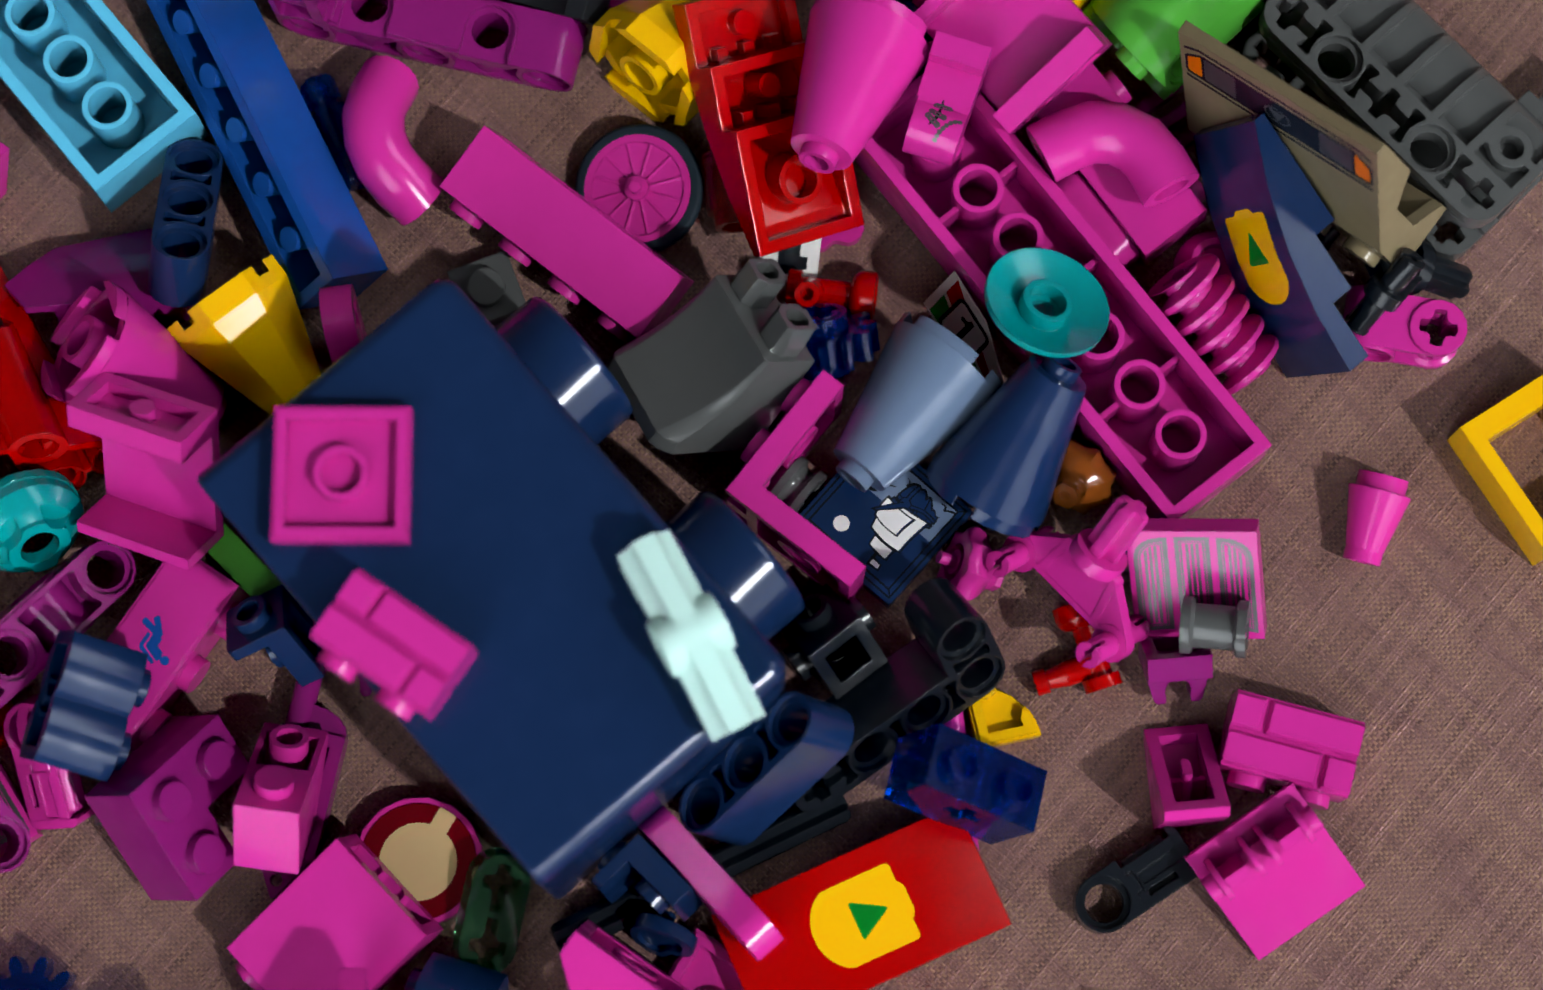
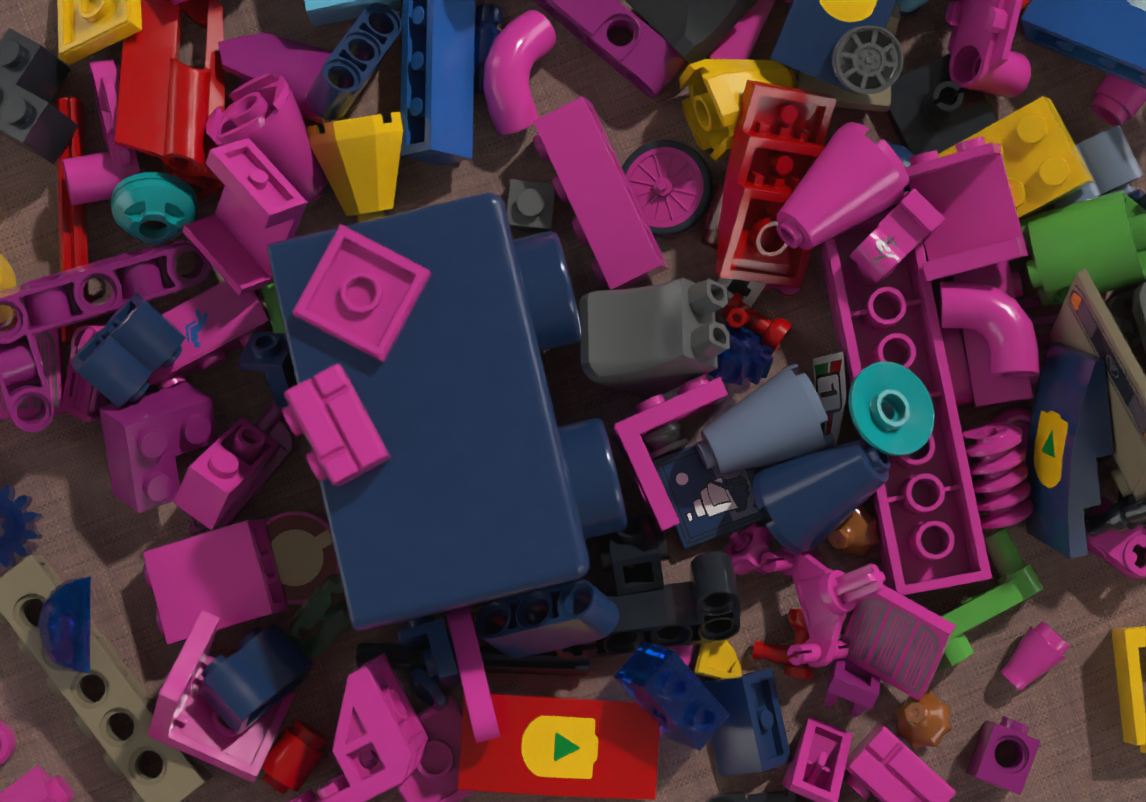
camera: 25 degrees right, 5 degrees up
(340, 319) = (422, 182): dark pink beam -> none
(690, 634) = (534, 520): light aqua piece -> none
(1086, 778) = (754, 733): none -> dark blue panel
(1214, 626) = (889, 678): dark grey bush -> none
(1282, 661) = (923, 721): none -> dark orange piece
(1304, 442) = (1014, 585): none -> bright green beam
(1392, 680) = (983, 761): none -> magenta brick

